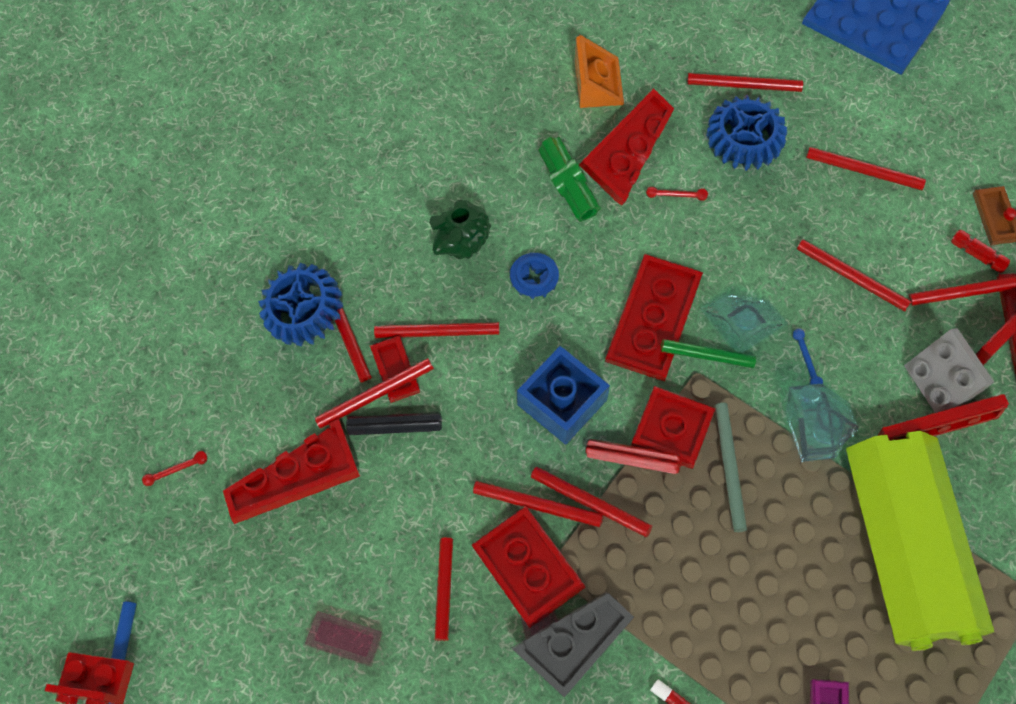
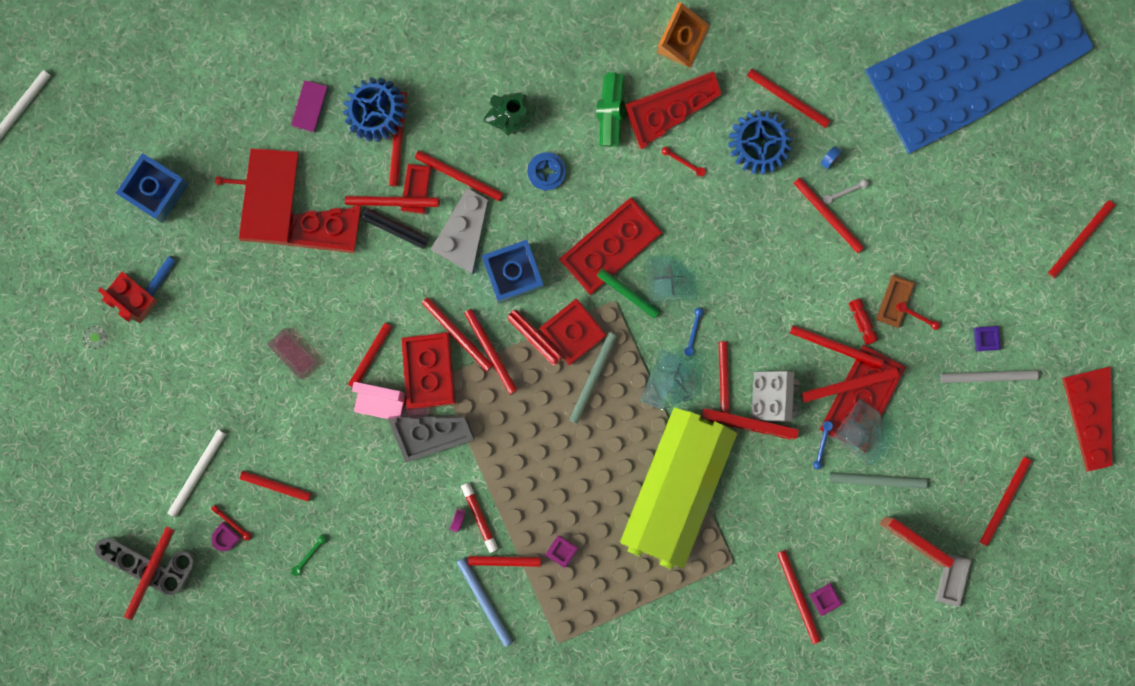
camera: 25 degrees right, 20 degrees up
(64, 525) = (152, 188): none -> blue brick
(220, 343) = (309, 106): none -> magenta tile
(220, 464) = (269, 196): none -> red tile
(476, 388) = (462, 232): none -> light grey wing
(485, 636) = (378, 401): none -> bright pink panel
(829, 111) = (831, 157): none -> blue tile
(854, 275) = (764, 289): red bar -> none
(873, 387) = (724, 377): none -> red bar
(879, 121) = (827, 199): none -> light grey hinge

